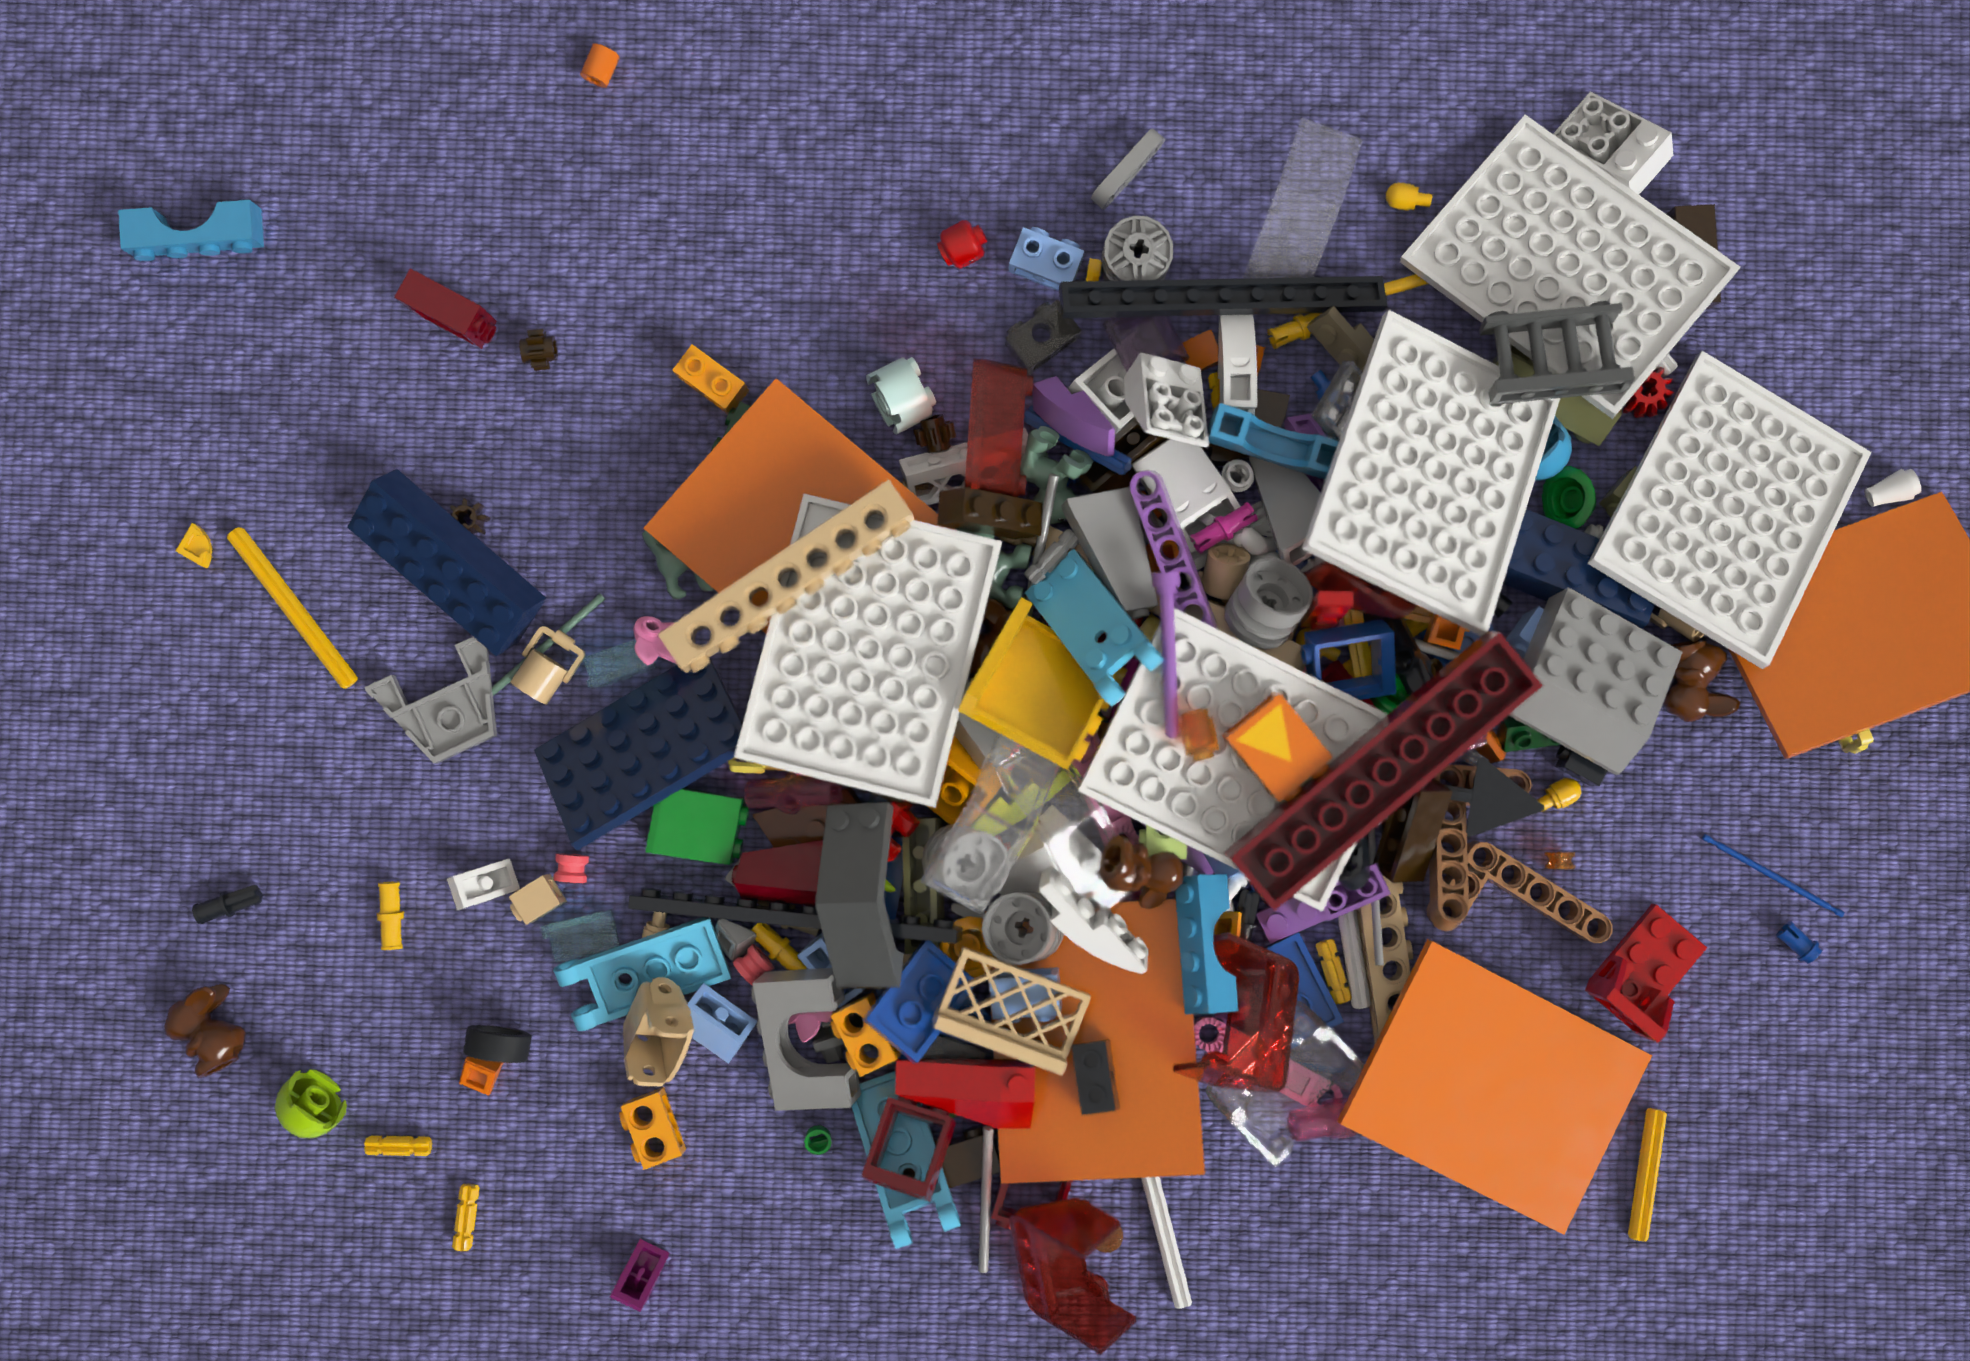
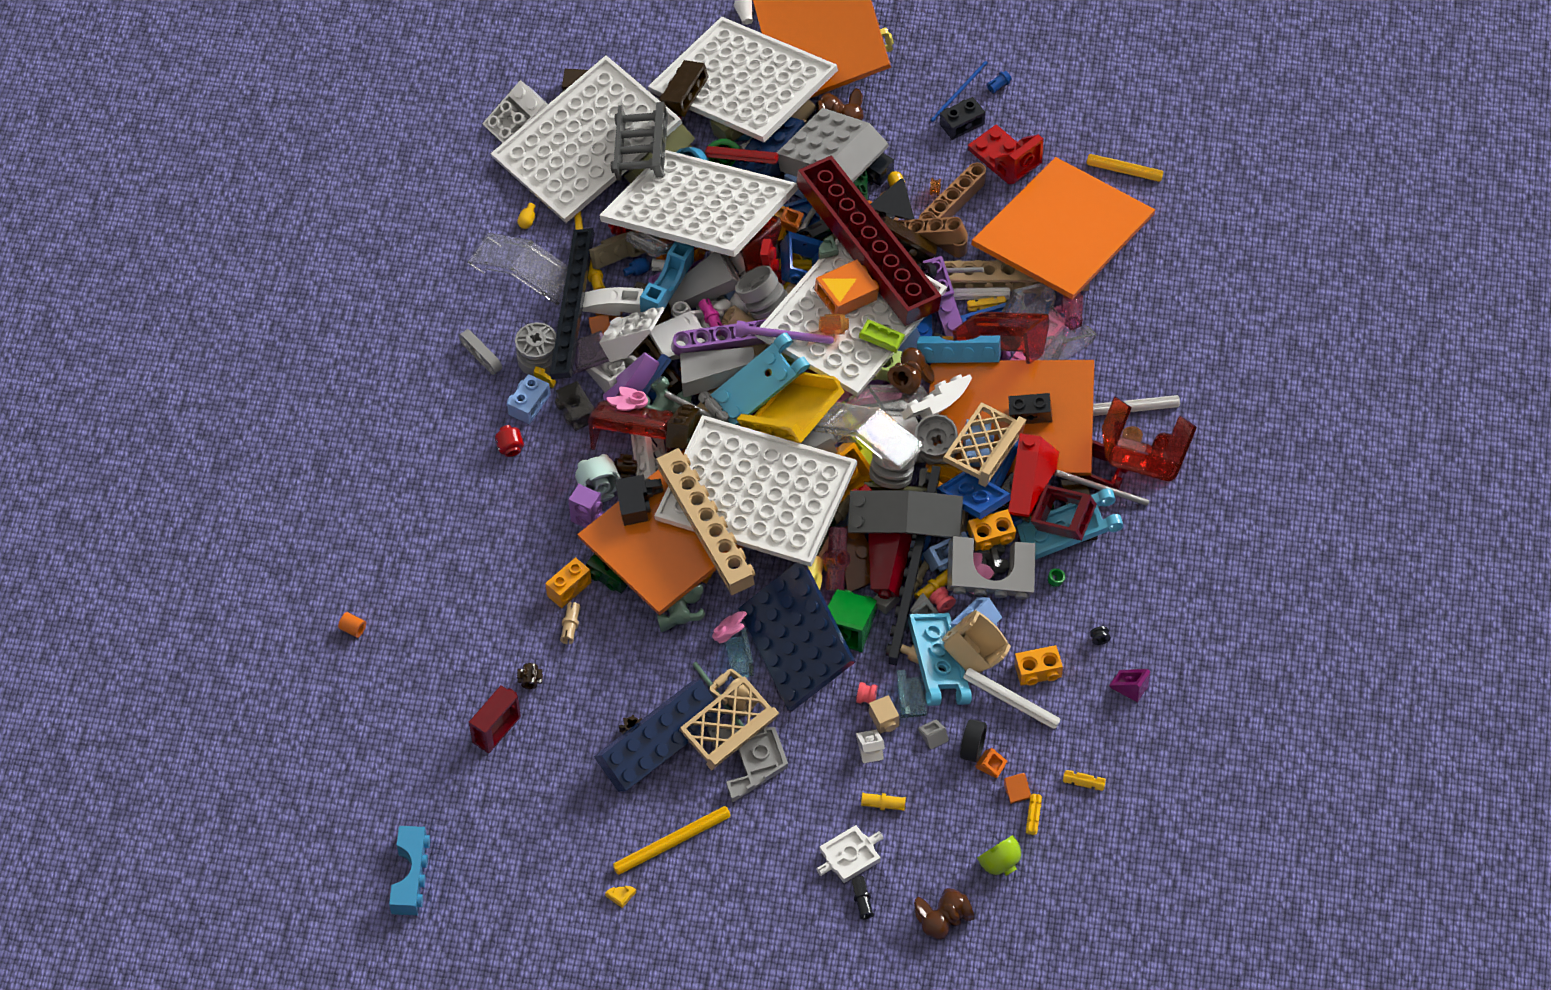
camera: 80 degrees left, 30 degrees down
(295, 876) = (850, 853): none -> white plate
(439, 1116) = (1017, 788): none -> orange slope
(459, 691) = (743, 734): none -> tan fence
(522, 976) = (933, 734): none -> light grey slope
(587, 1093) = (1011, 698): none -> white axle
(644, 395) = (570, 623): none -> tan pin
(720, 1219) = (1100, 635): none -> black bush
(833, 454) = (634, 497): none -> black hinge
(842, 384) = (585, 506): none -> medium lavender brick
(1025, 412) = (628, 399): none -> bright pink plate
(1192, 817) = (881, 336): none -> lime plate
(1362, 703) = (828, 248): none -> sand green tile
(1559, 530) = (741, 155): none -> red axle
(1692, 410) = (684, 87): none -> dark brown brick
(1711, 888) = (962, 118): none -> black brick

